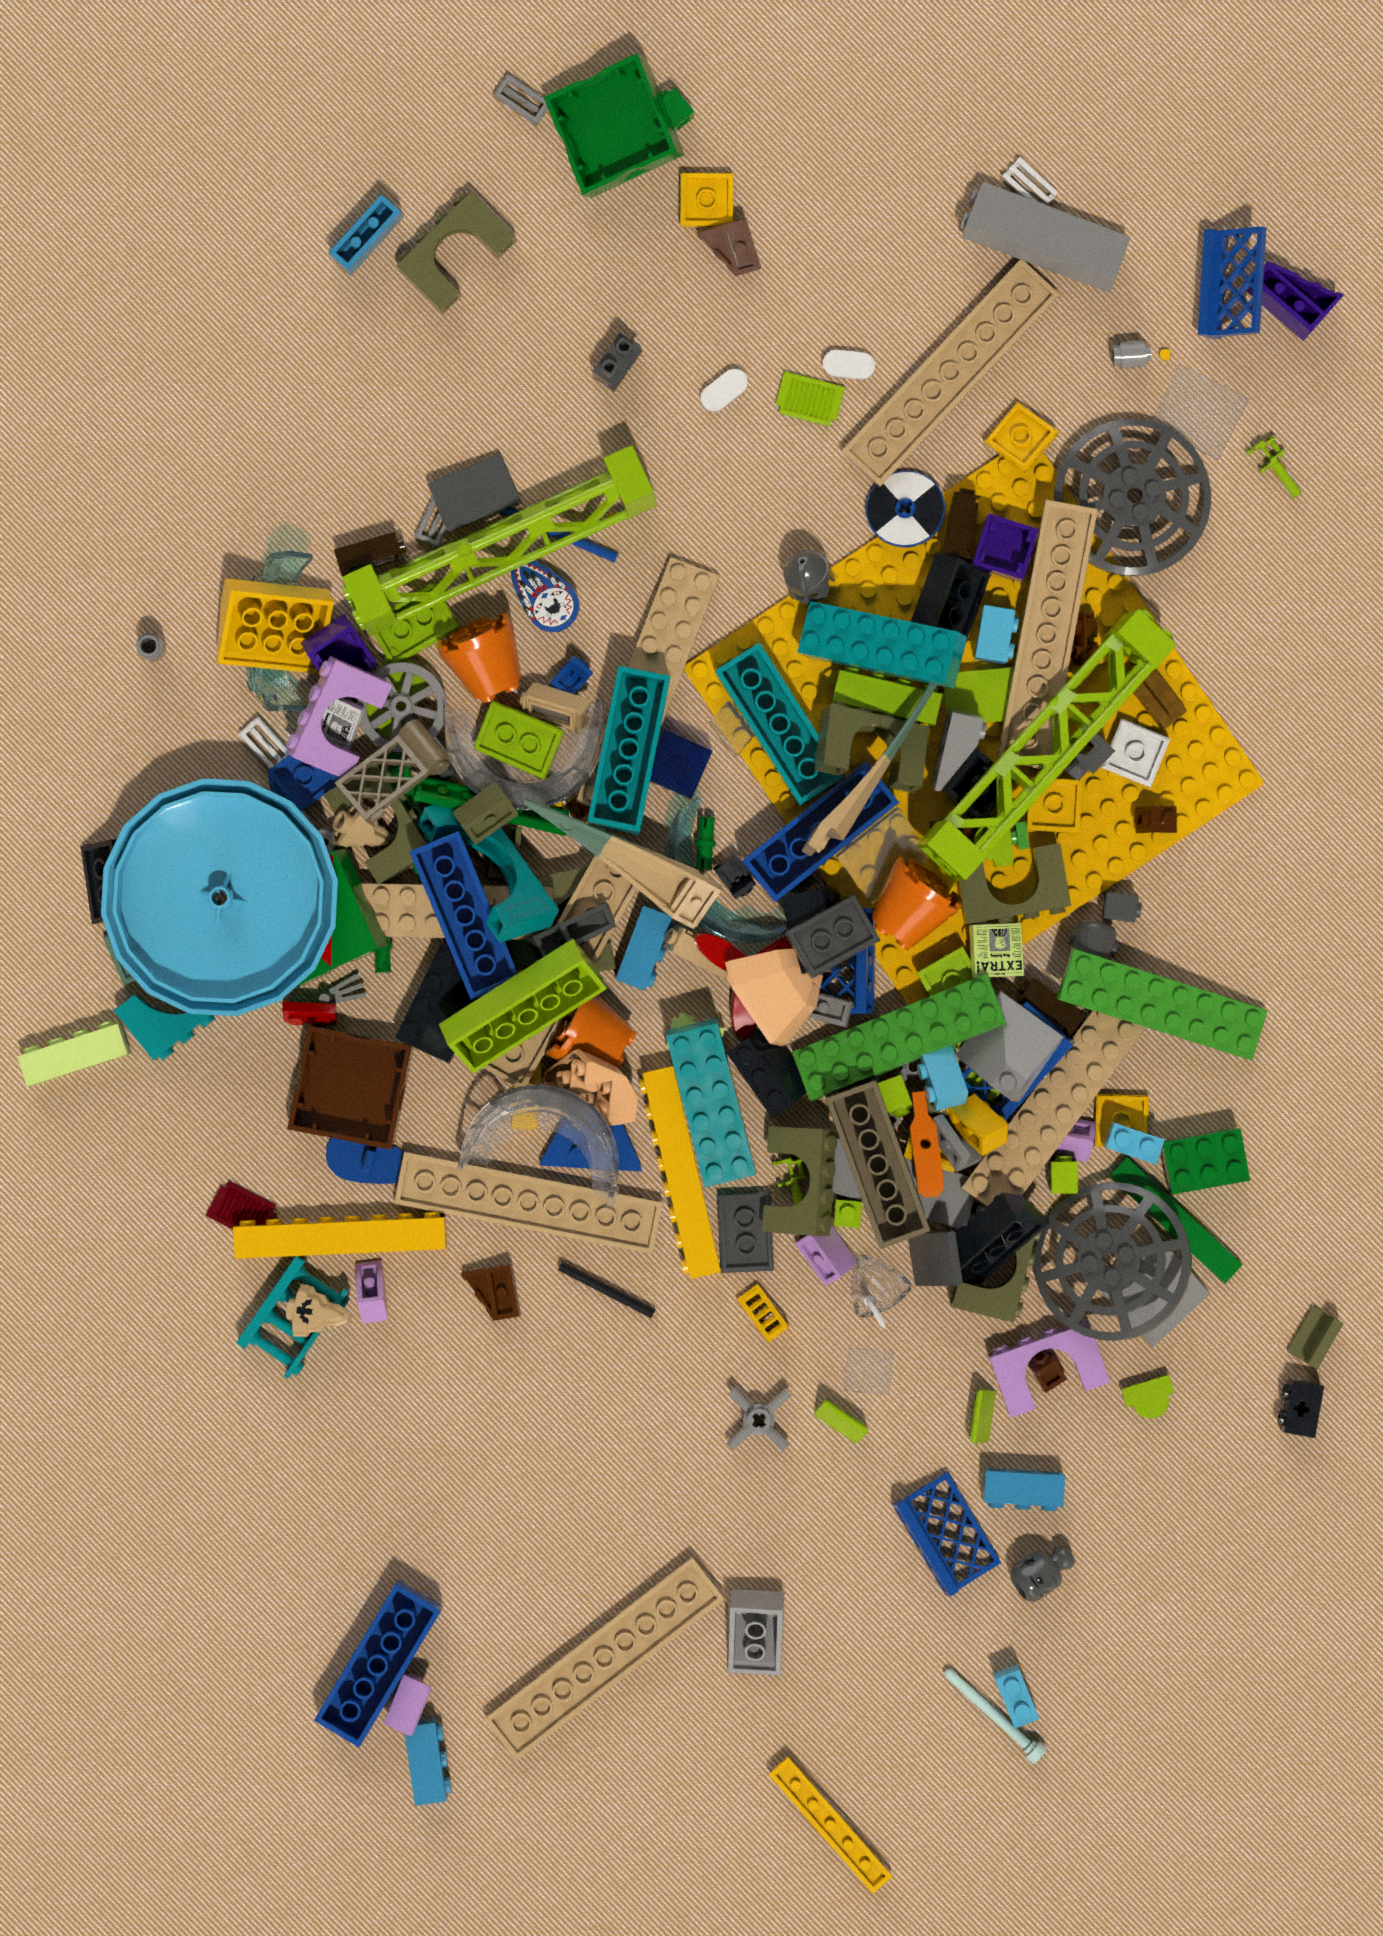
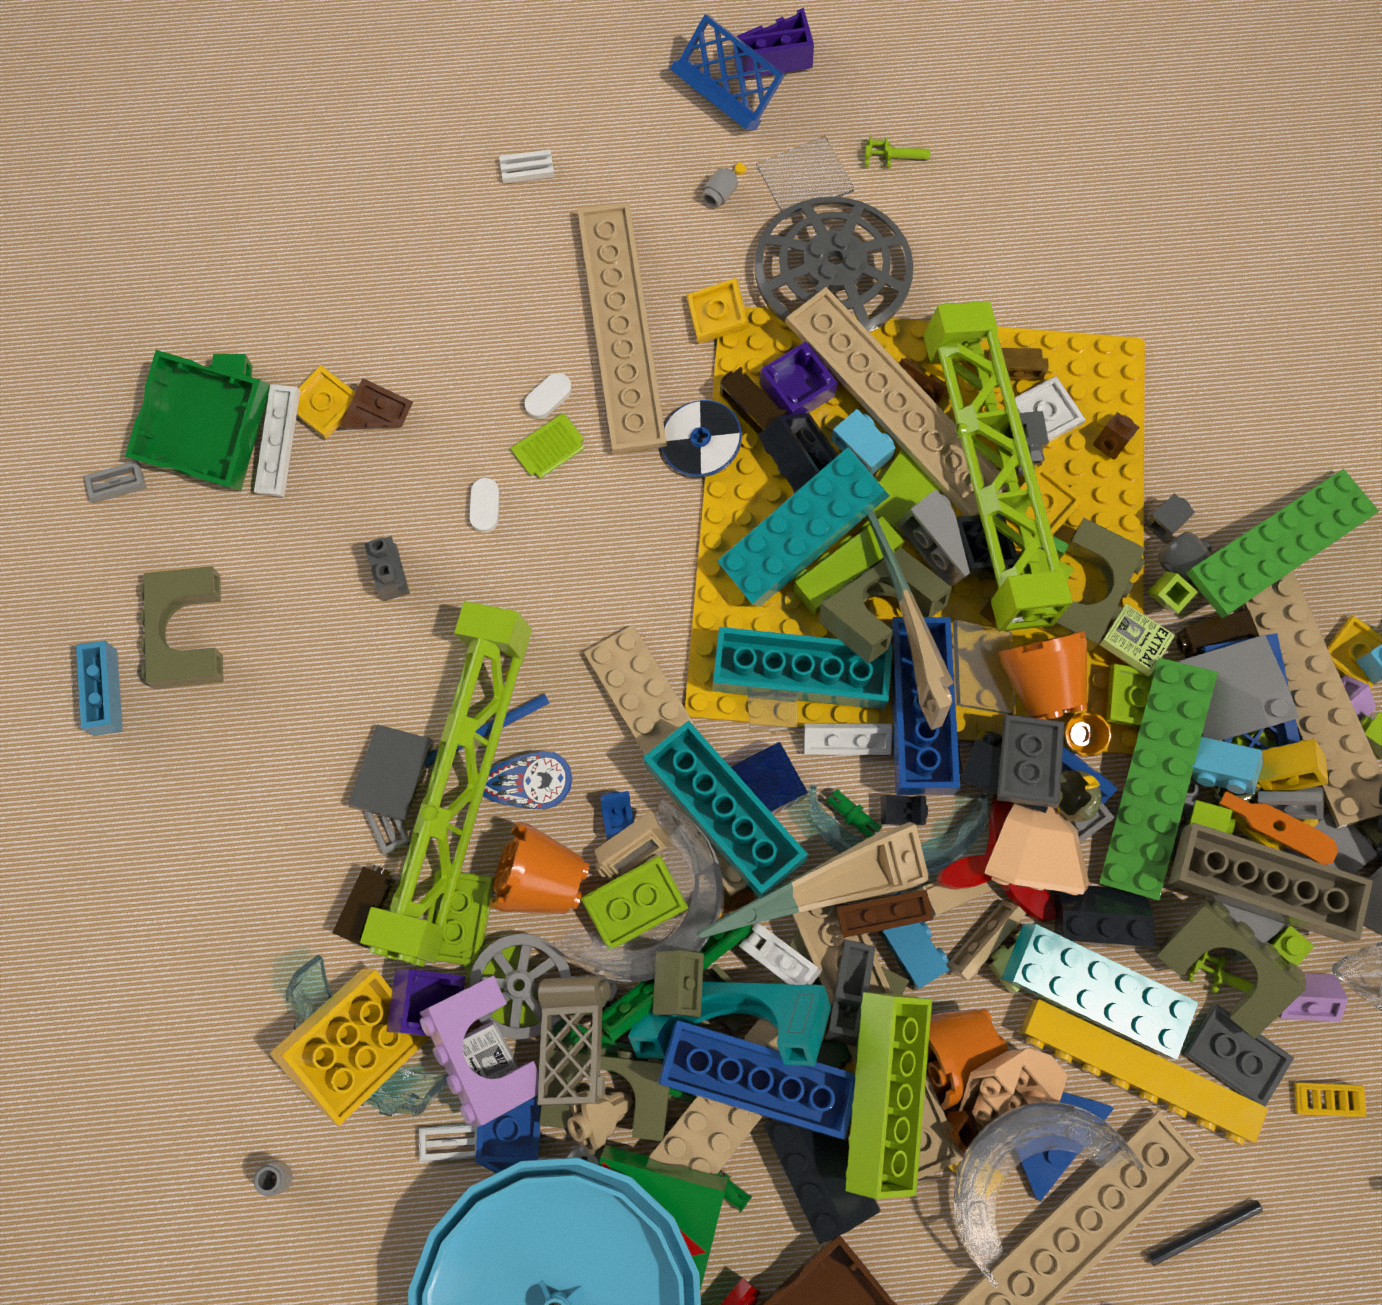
camera: 55 degrees left, 15 degrees down
(334, 995) = (731, 1270): light grey piece -> none
(540, 1073) = (960, 1130): none -> reddish brown slope
(559, 868) = (780, 957): none -> white plate
(643, 915) = (884, 913): none -> reddish brown plate
(647, 195) = (277, 440): none -> white plate
(688, 1002) = (986, 940): none -> tan plate
(756, 797) = (847, 739): none -> white plate
(806, 575) = (692, 548): dark grey helmet -> none
(837, 989) = (1079, 795): none -> olive hair
(892, 964) = (1087, 734): none -> light orange hair
(1044, 236) = (576, 178): light grey brick -> none
(1054, 949) = (1172, 592): none -> lime brick

